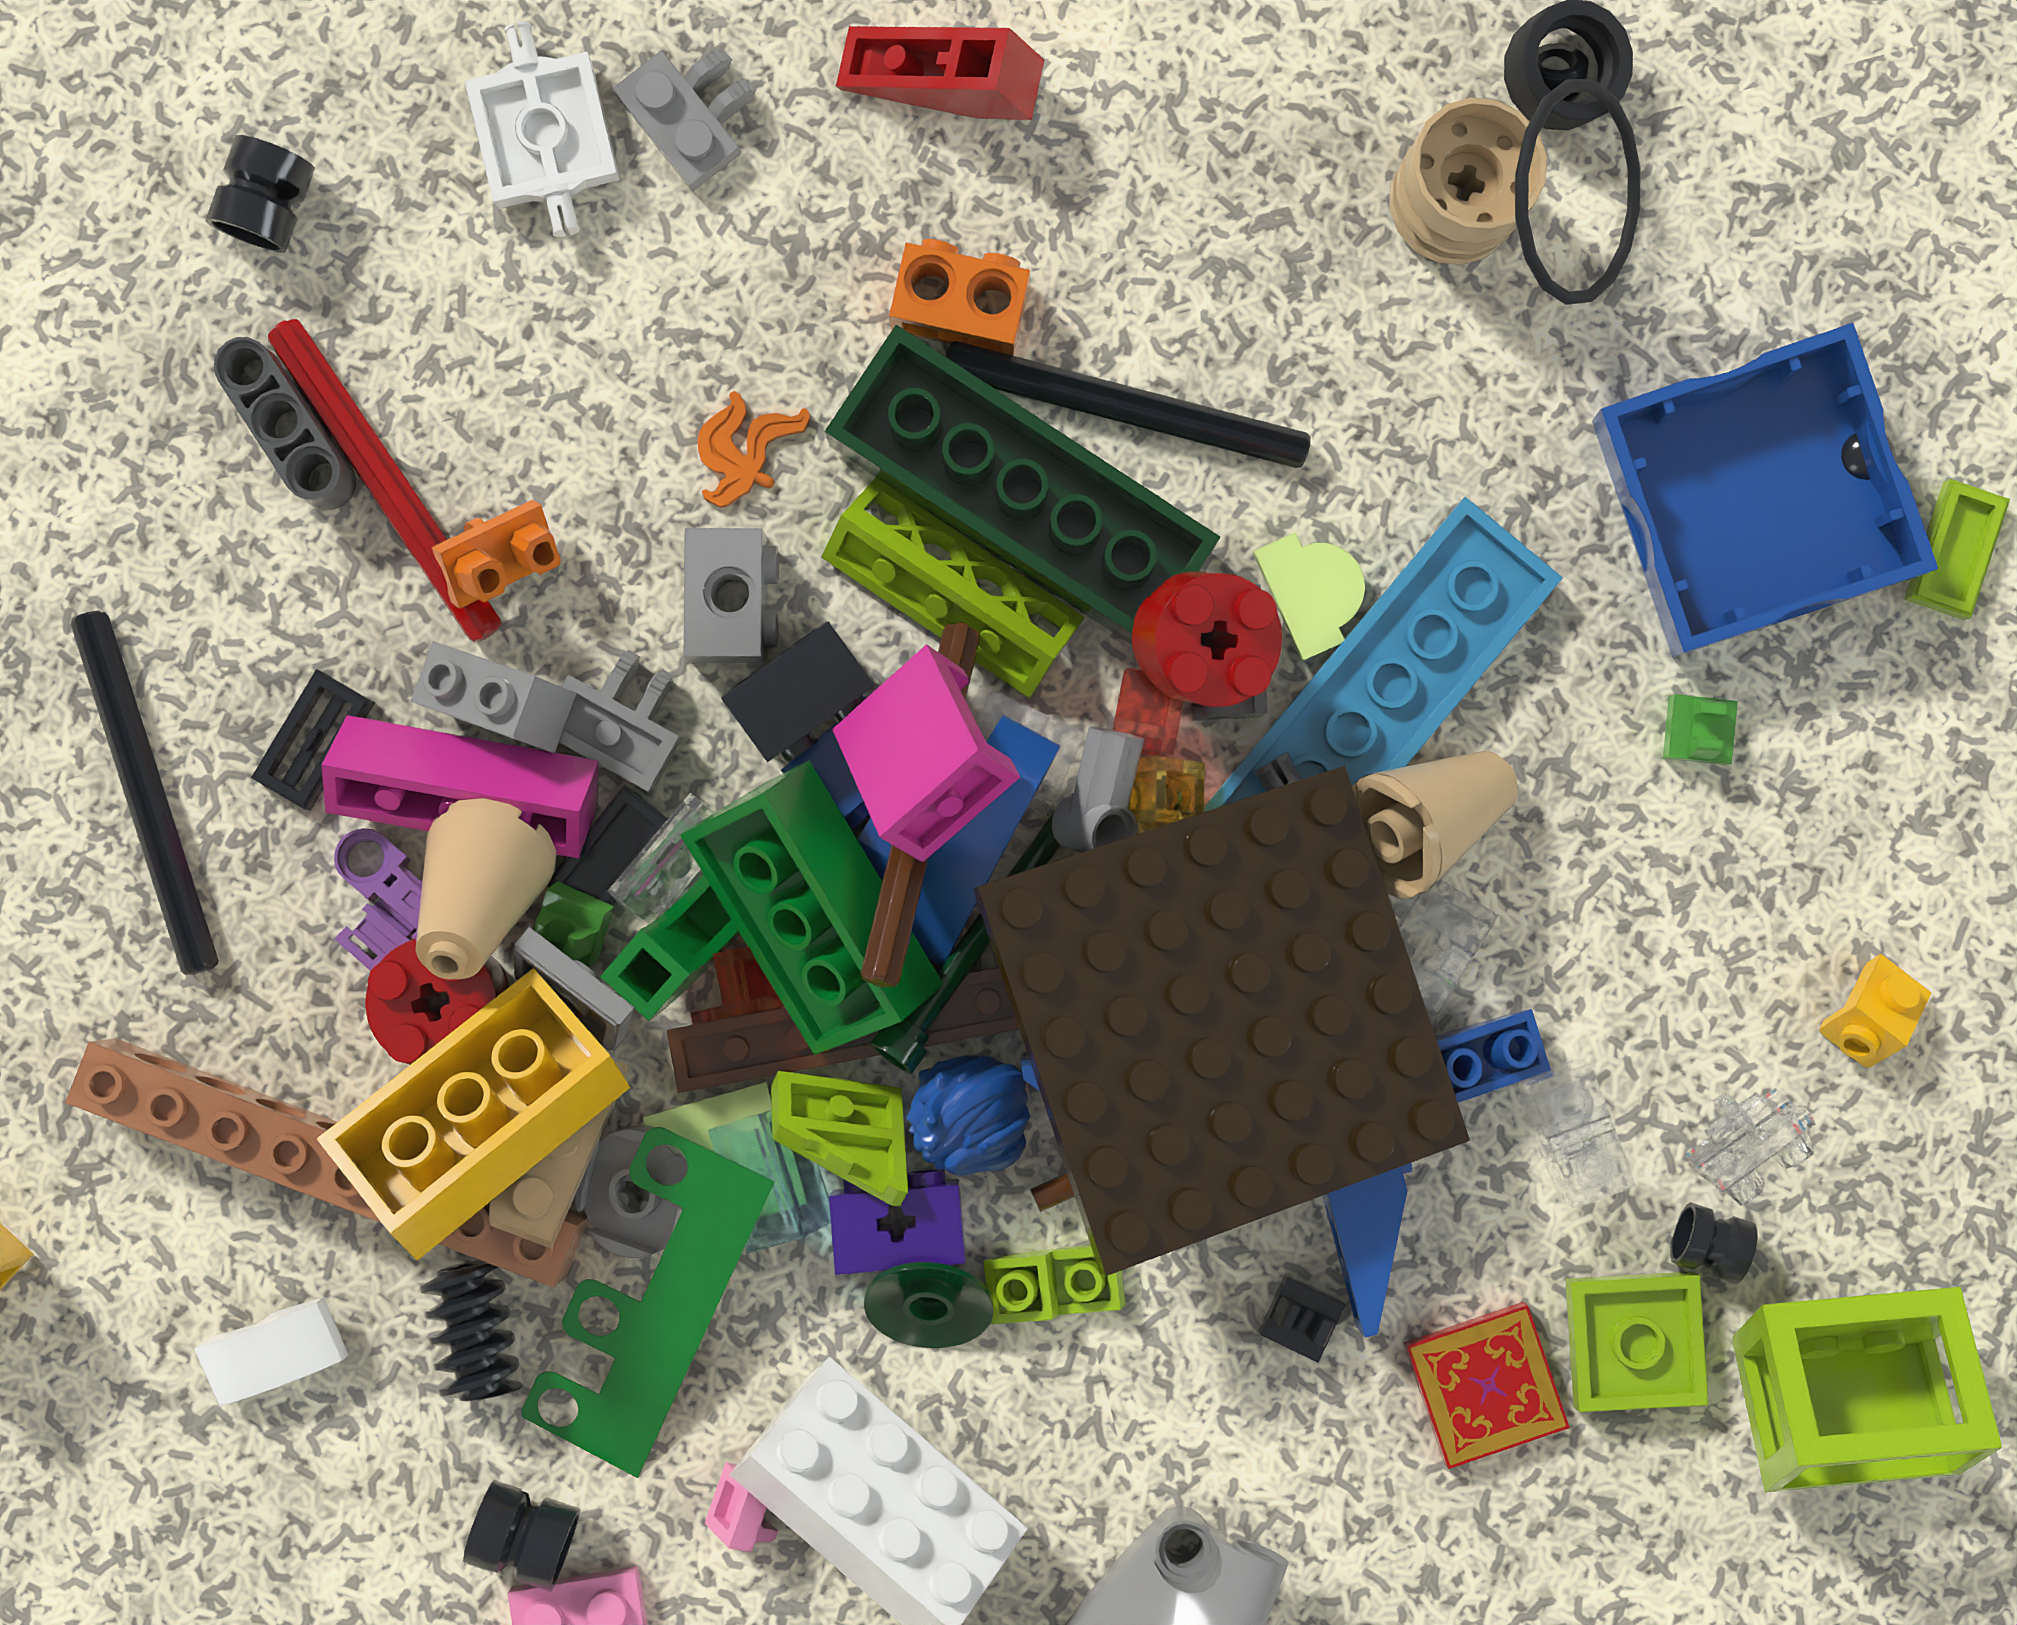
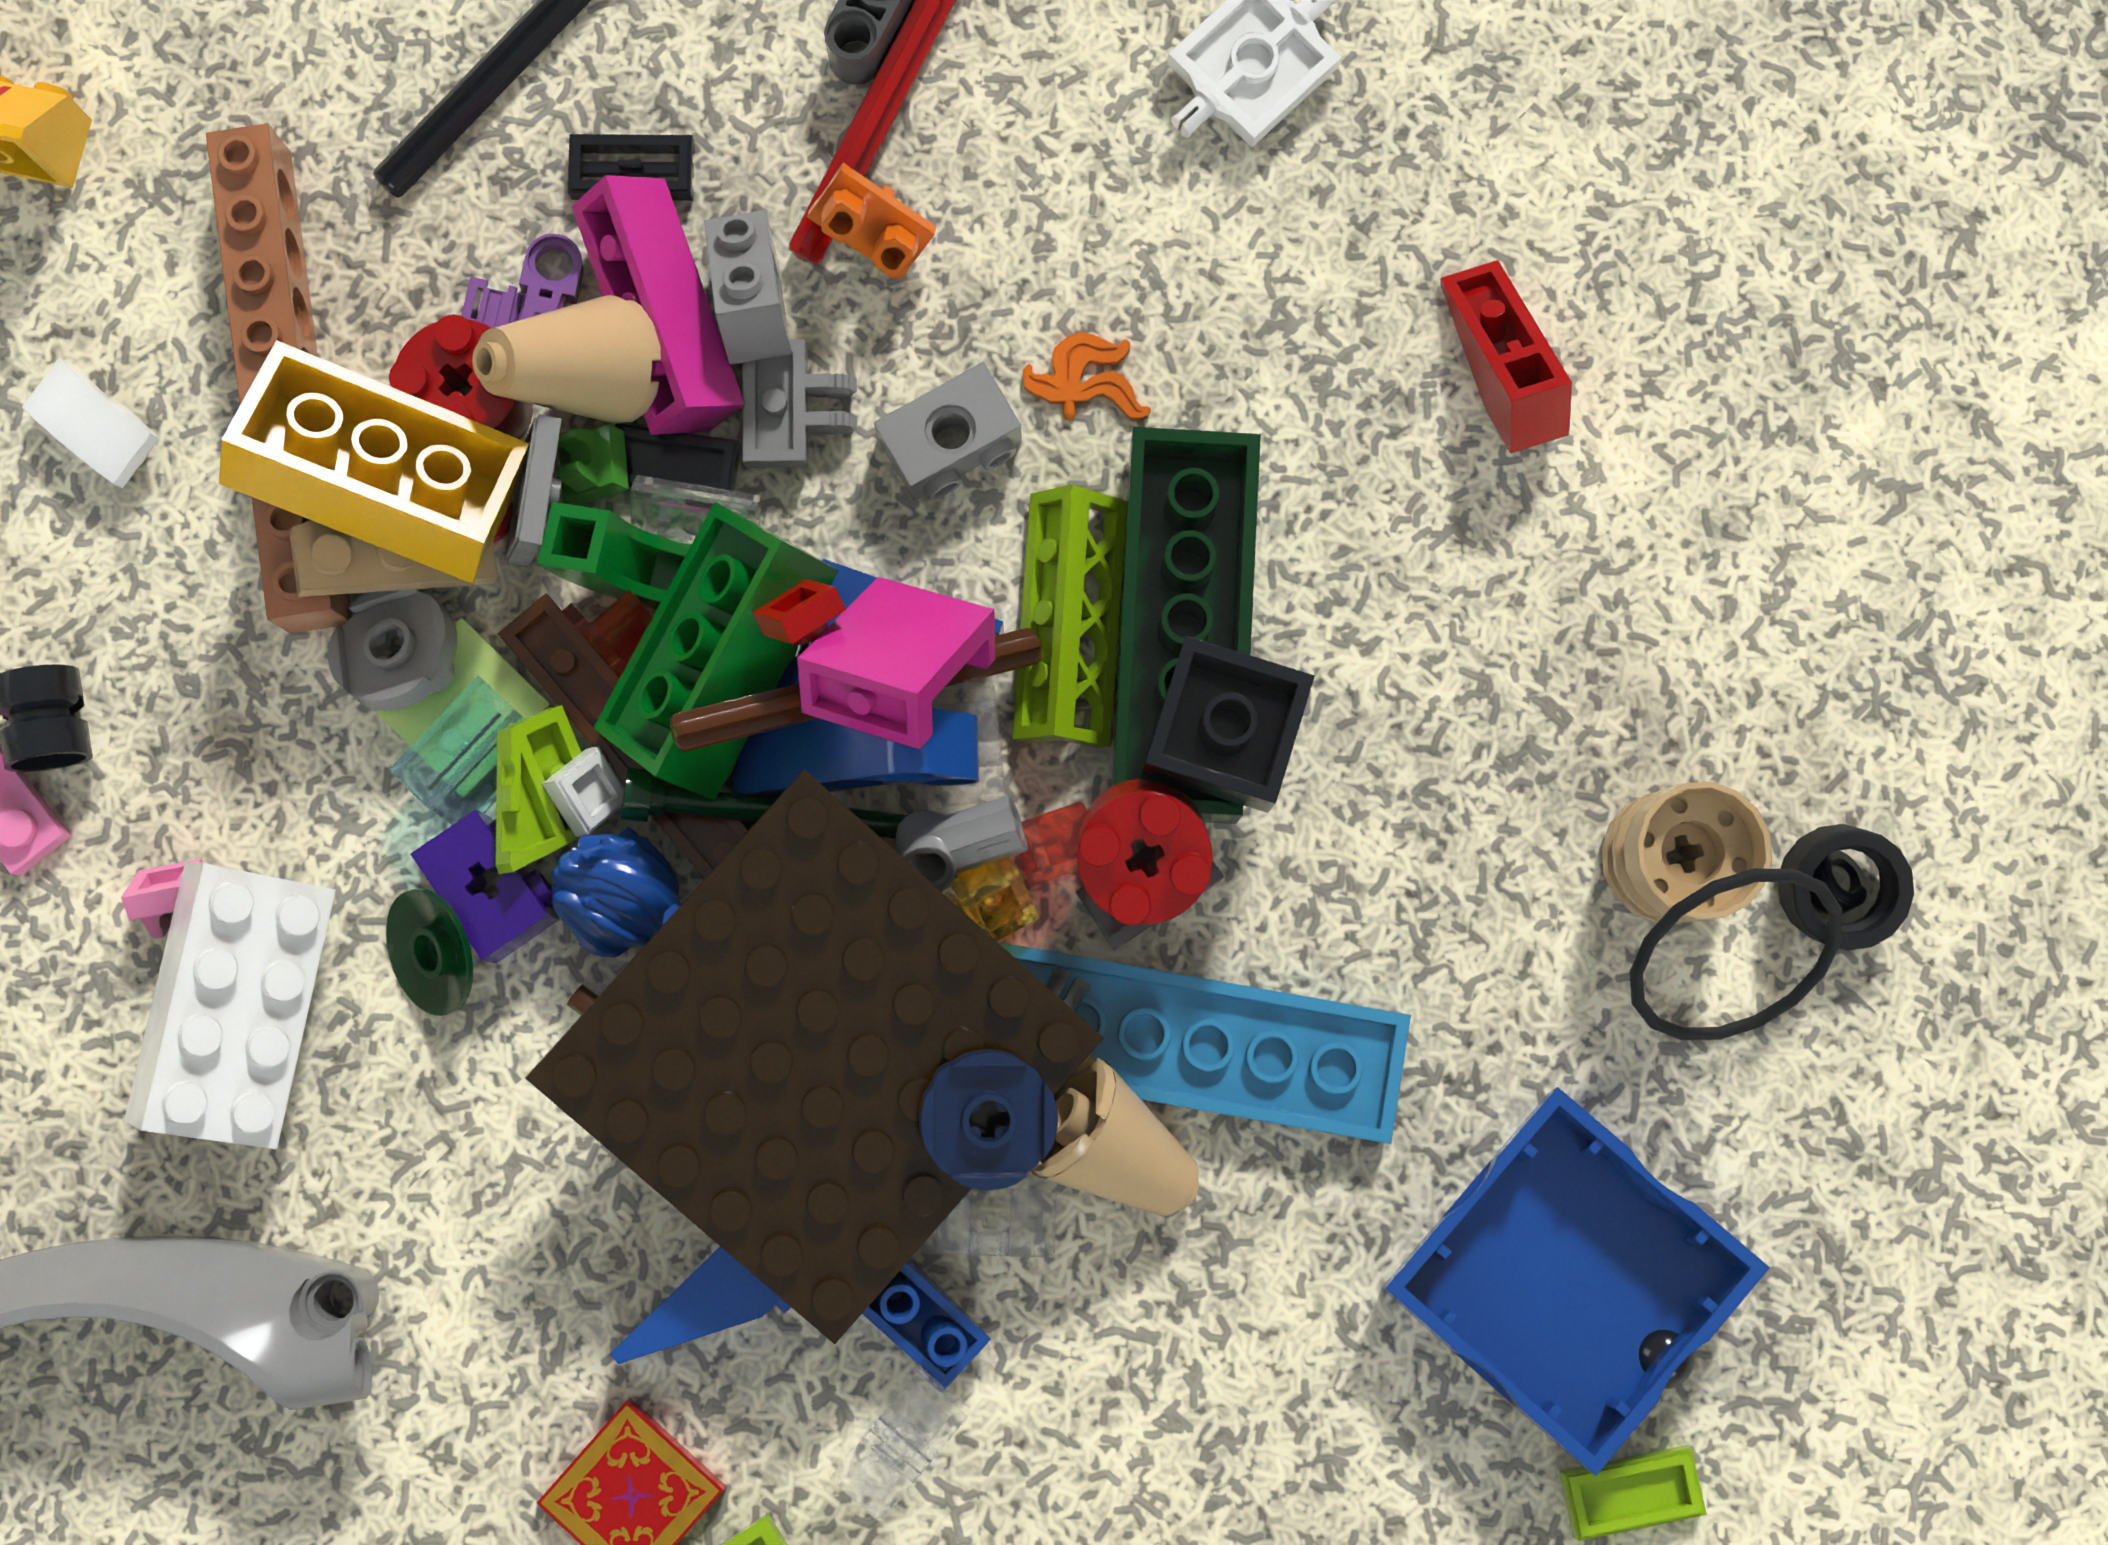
camera: 60 degrees right, 5 degrees down
(471, 1332) = (194, 578): black piece -> none
(665, 1329) = (289, 737): green piece -> none
(679, 120) = (1332, 163): light grey hinge -> none
(798, 693) = (896, 532): black slope -> none
(834, 813) = (799, 612): none -> red plate
(866, 1091) = (586, 791): none -> white tile
(955, 313) = (1305, 484): orange brick -> none
(1050, 1285) = (504, 1047): lime slope -> none
(1133, 405) = (1324, 701): black axle -> none
(1143, 501) = (1228, 724): none -> black brick
(1301, 1318) = (600, 1292): black tile -> none
(1314, 590) = (1250, 931): yellowish green piece -> none
(1398, 891) = (1015, 1146): none -> dark blue plate
(1700, 729) = (1330, 1349): bright green tile -> none

